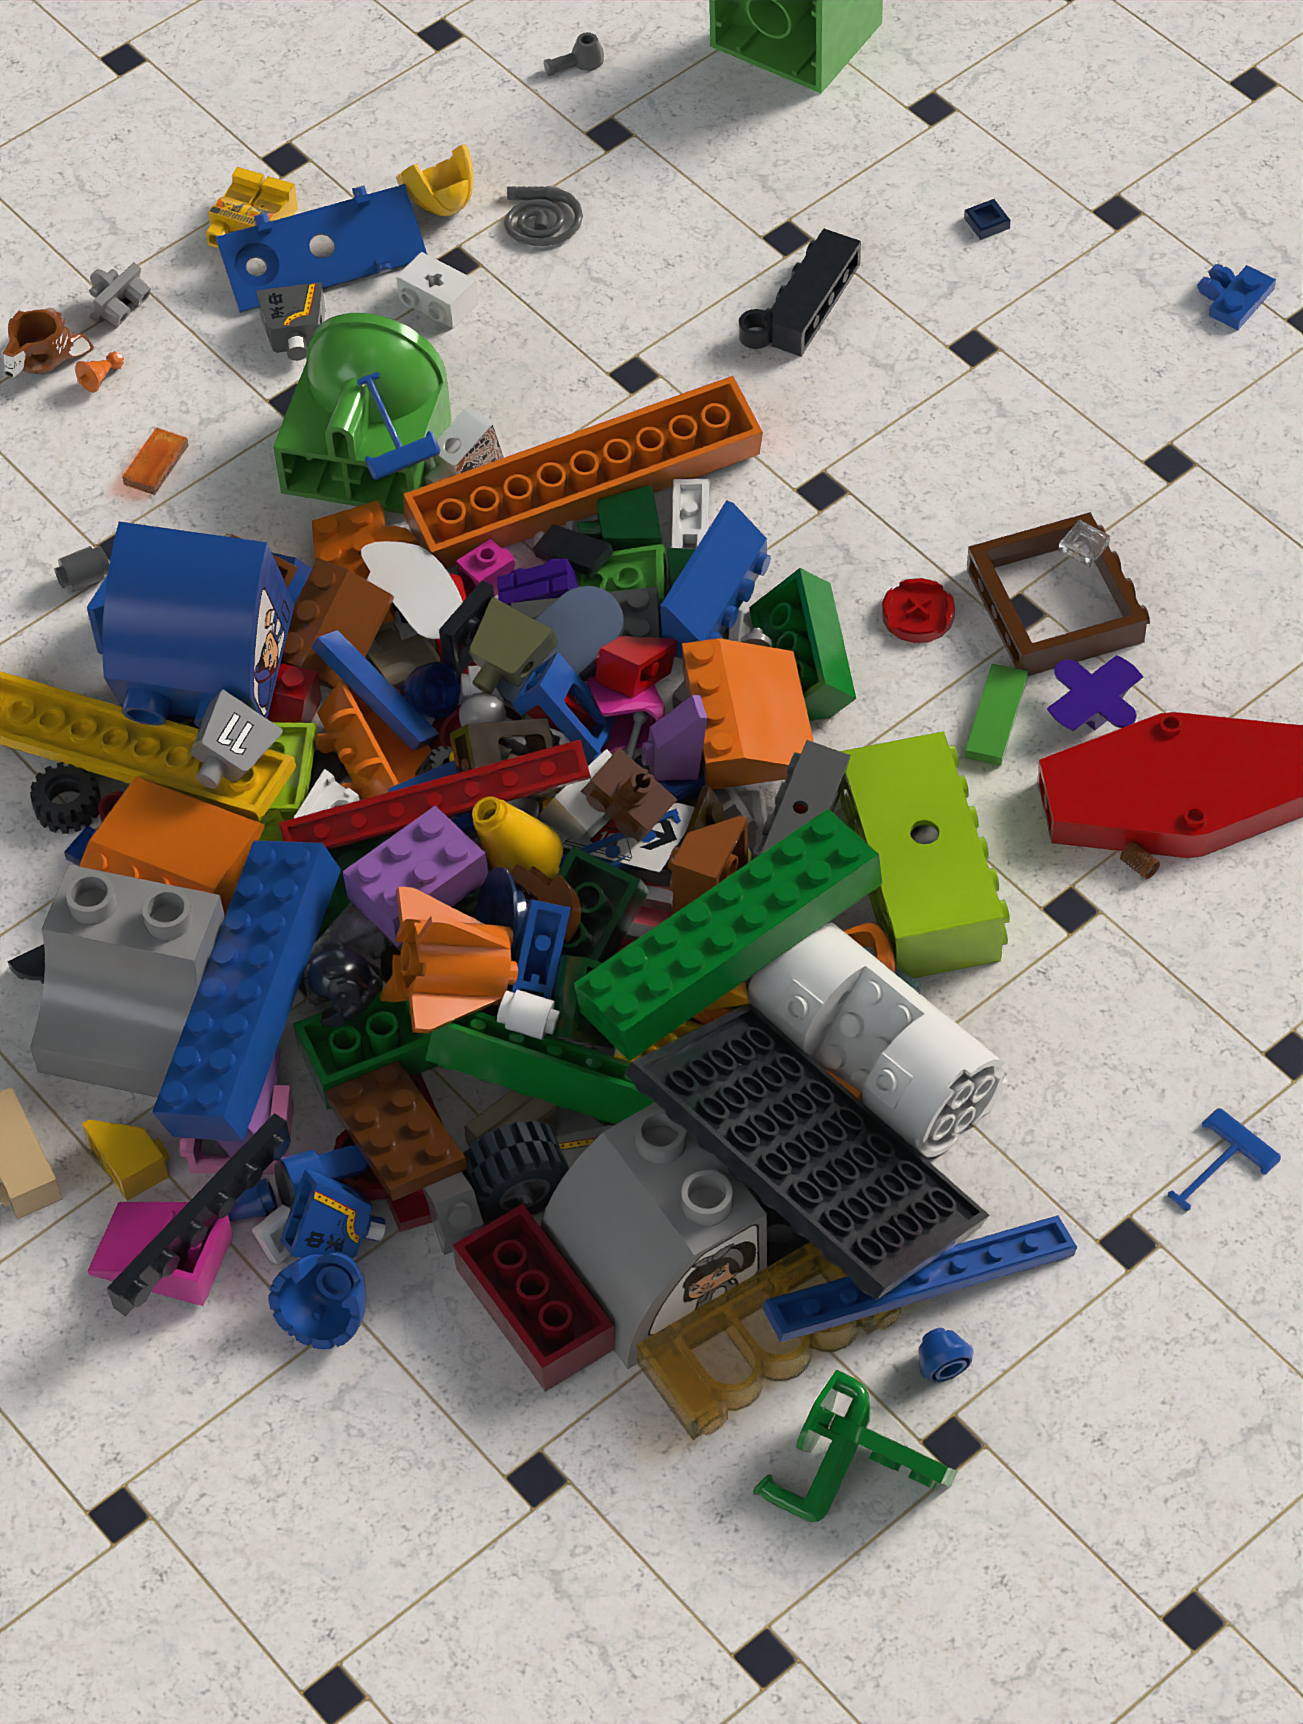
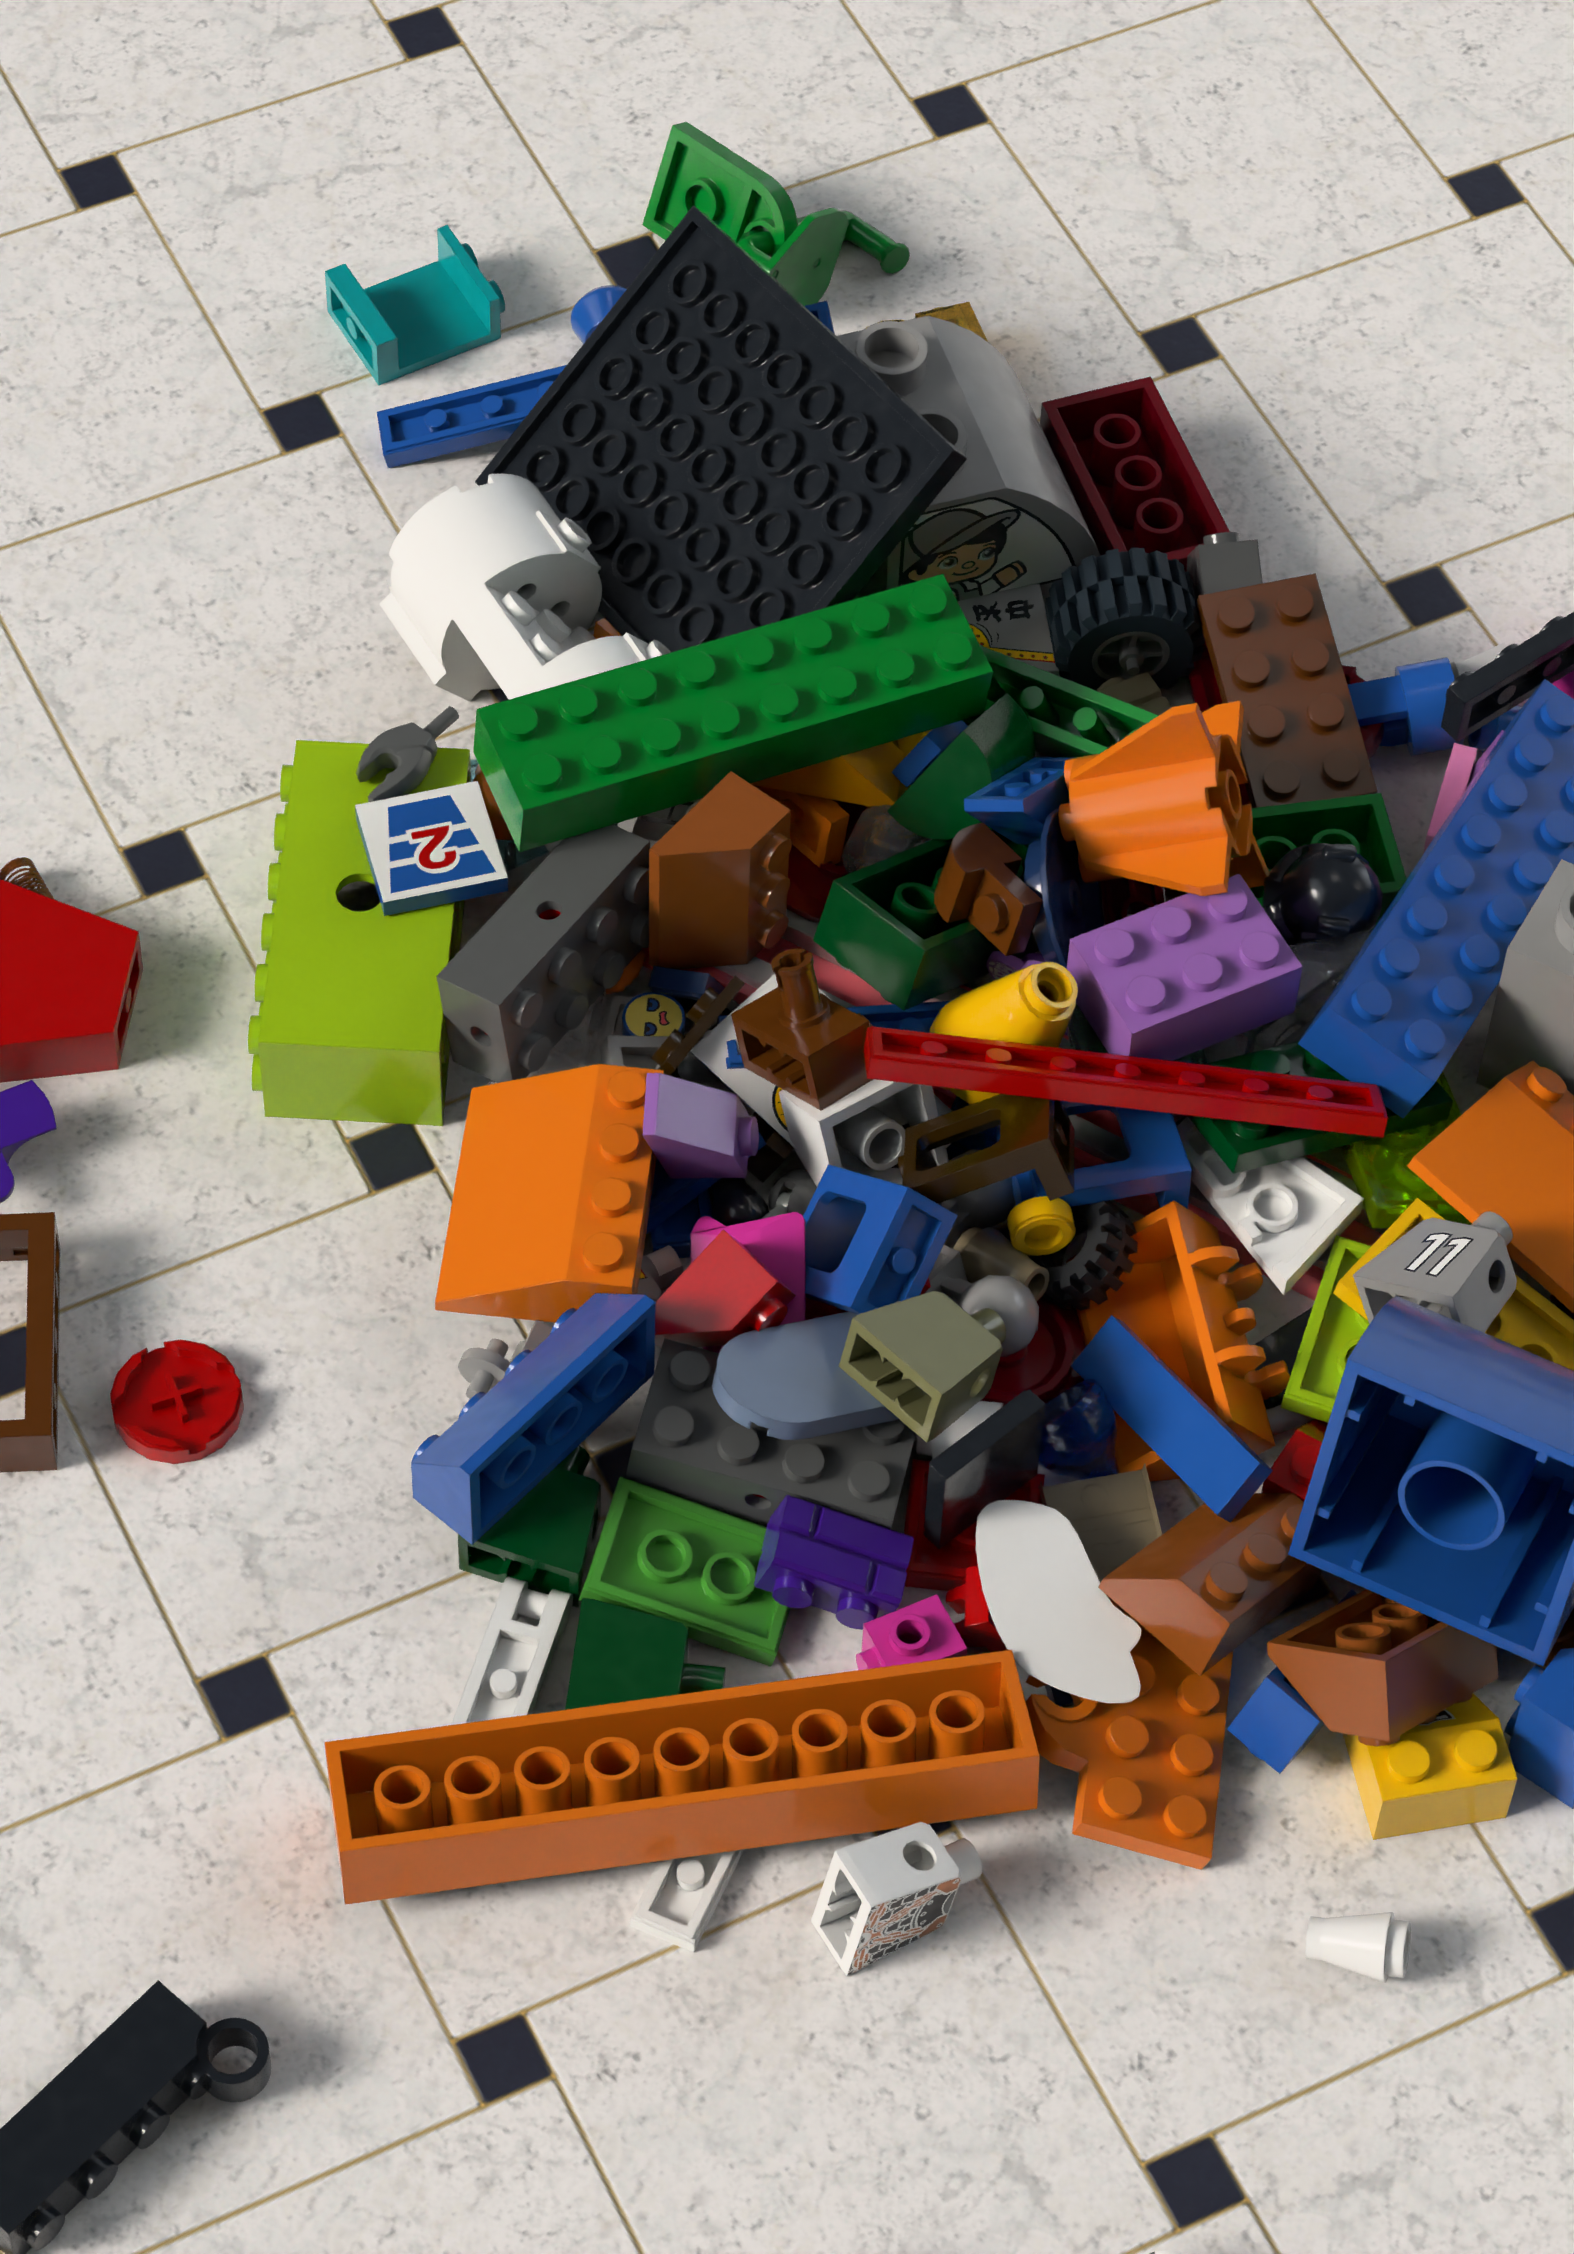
camera: 170 degrees left, 0 degrees up
(155, 461) = (1492, 2098): clear orange tile -> none
(228, 500) = (1361, 1943): none -> white cone
(319, 1299) = (1418, 568): blue hair -> none
(329, 1218) = (1404, 634): blue torso -> none
(337, 422) = (1076, 1978): bright green piece -> none
(404, 455) = (1030, 1795): blue piece -> none
(528, 1014) = (1062, 723): white brick -> none
(582, 551) = (744, 1631): black tile -> none
(804, 619) = (394, 1353): green slope -> none
(904, 856) = (431, 848): none -> tile
(930, 913) = (407, 751): none -> dark grey hand
(996, 714) = (133, 1180): bright green tile -> none
(1090, 1339) = (419, 313): none -> teal panel
(1240, 1139) = (87, 500): blue piece -> none

